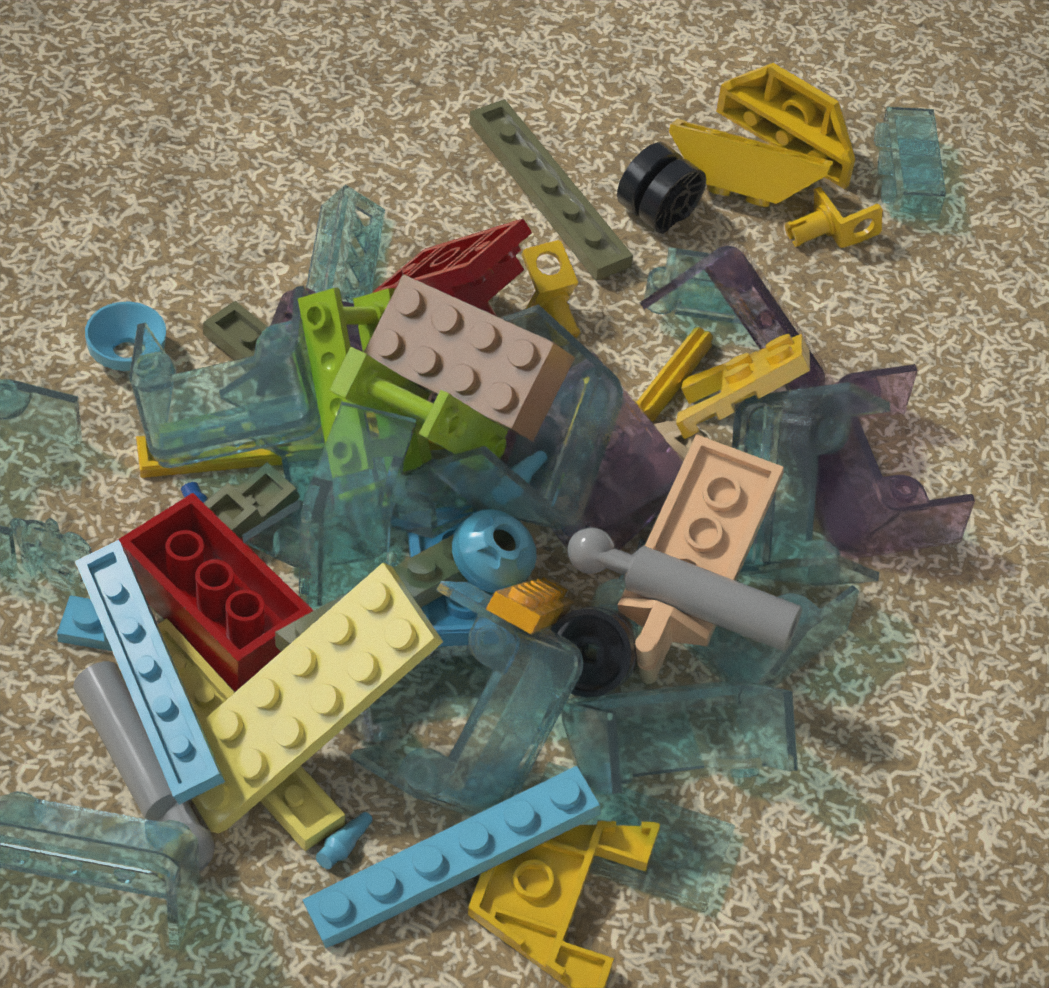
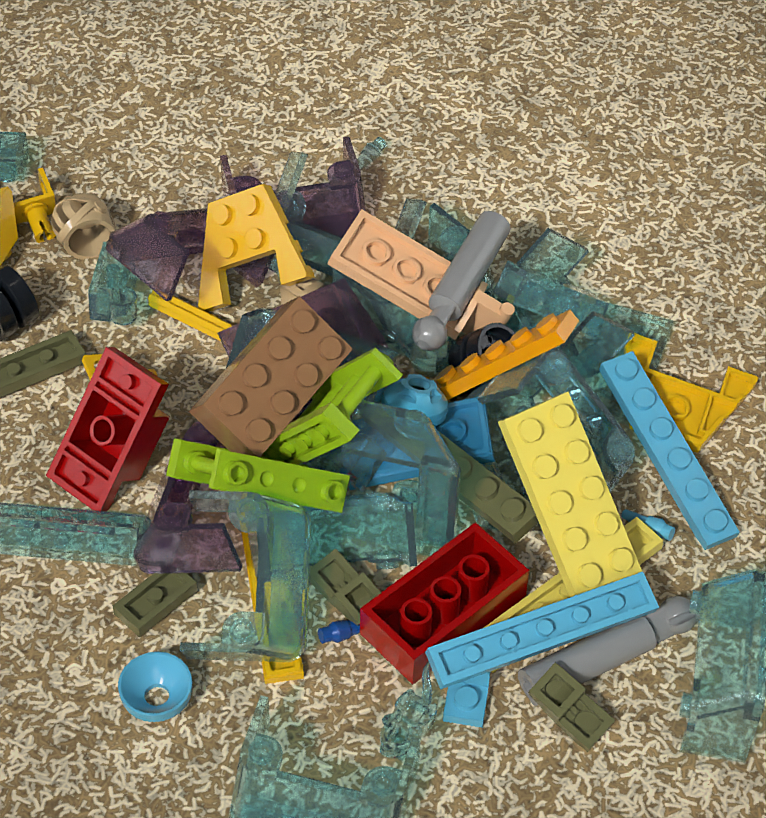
camera: 85 degrees left, 0 degrees up
(65, 707) = (570, 707): none -> olive slope
(696, 720) = (545, 294): none -> clear light blue brick
(804, 259) = (82, 224): none -> tan helmet
(994, 561) = (371, 152): none -> clear light blue piece

